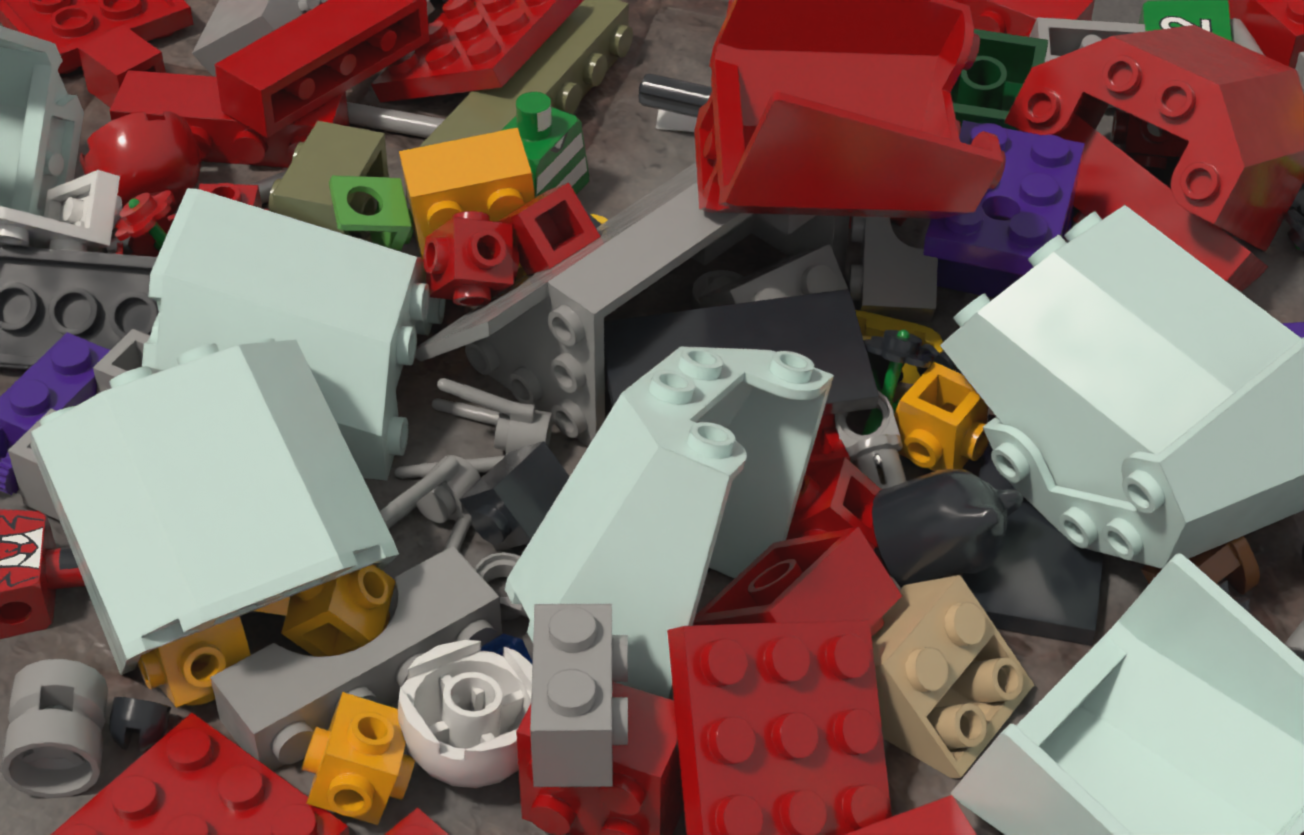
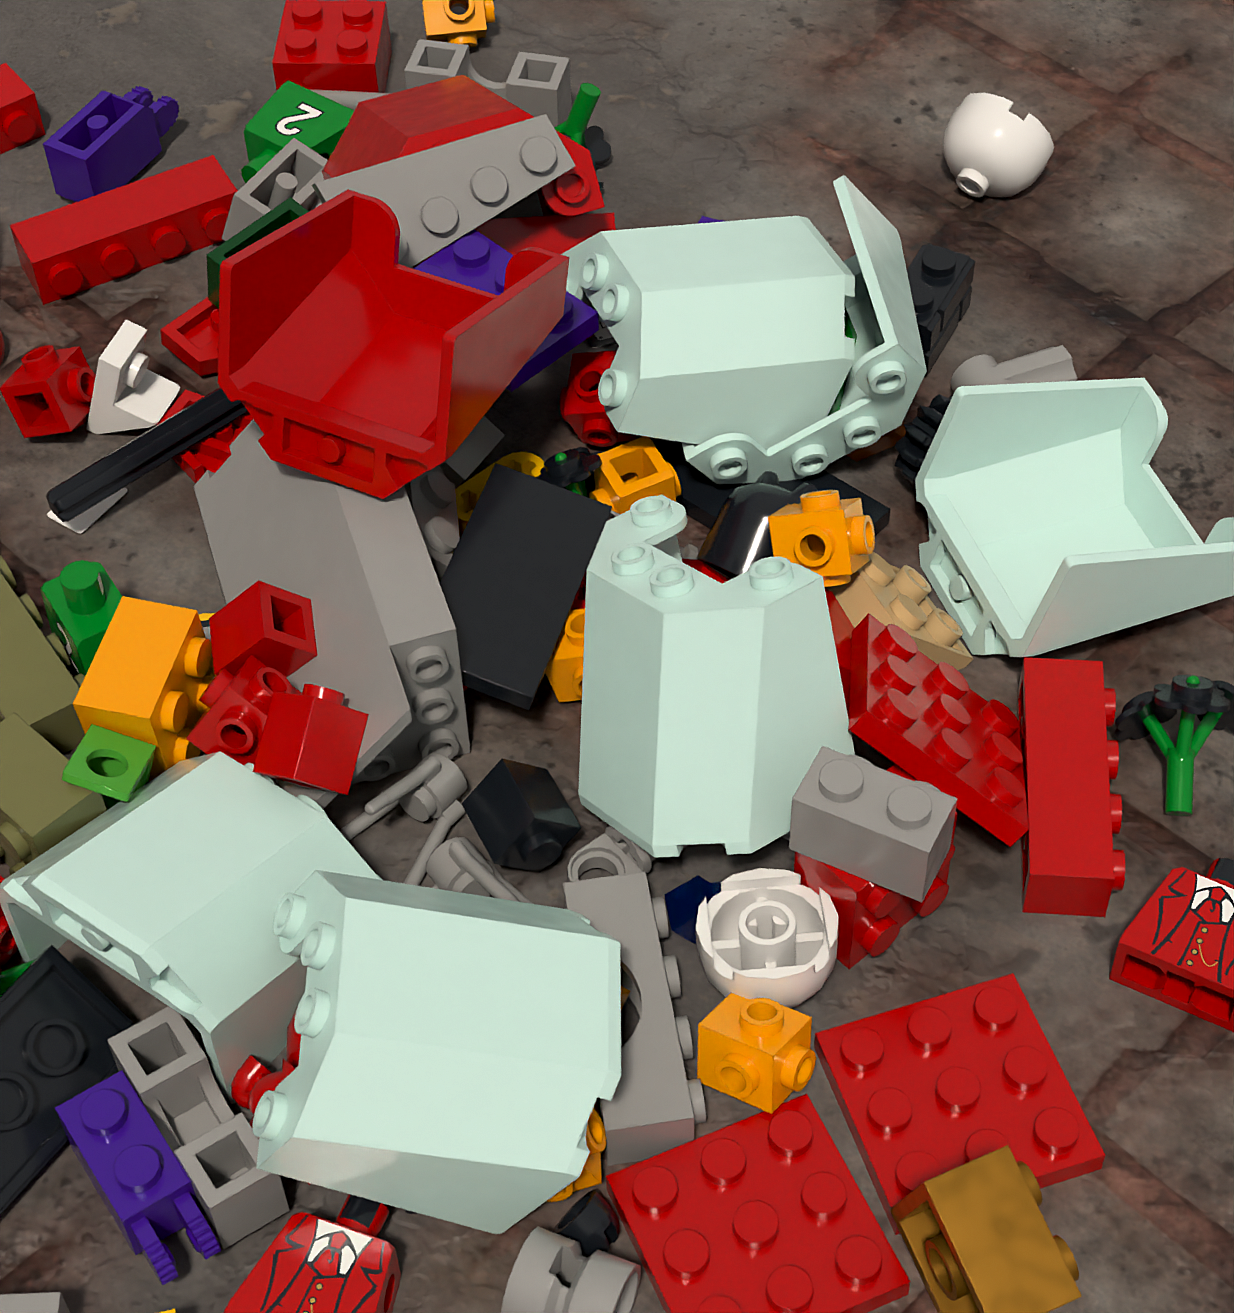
camera: 60 degrees left, 5 degrees up
(448, 296) = (311, 740): none -> red brick
(926, 542) = (824, 535): none -> light orange brick
(1071, 89) = (459, 183): none -> light grey wing

